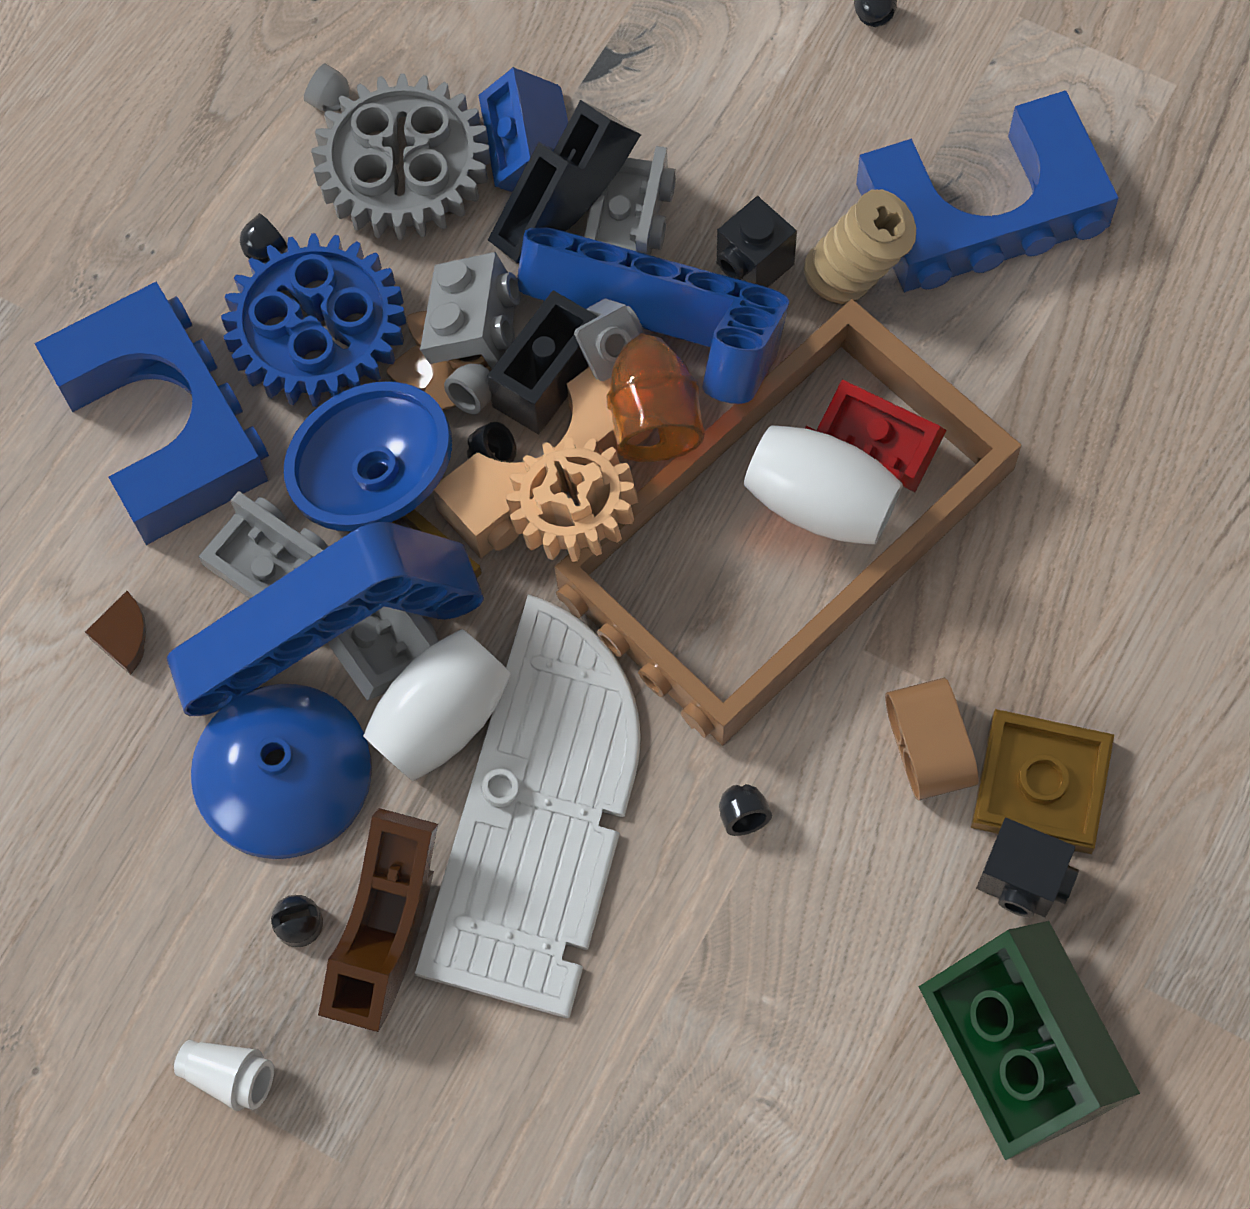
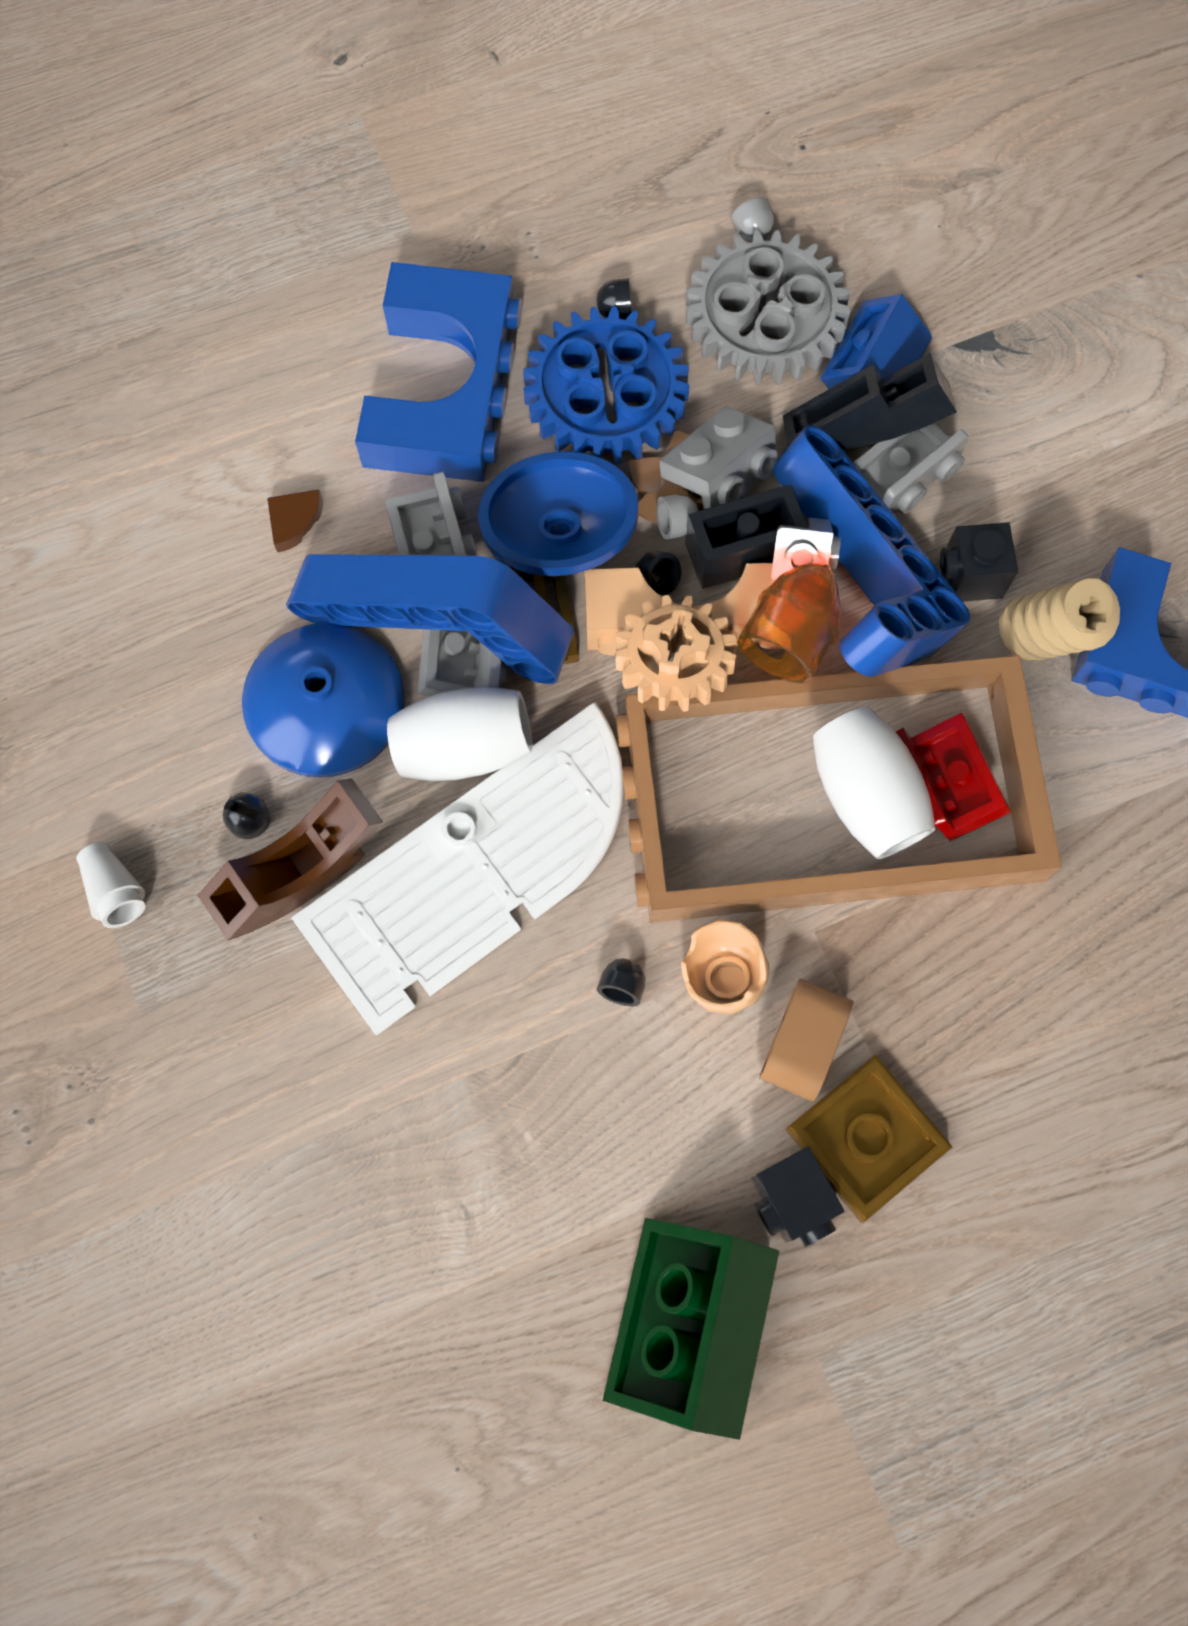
camera: 35 degrees right, 5 degrees up
(819, 728) = (725, 967): none -> light nougat hair

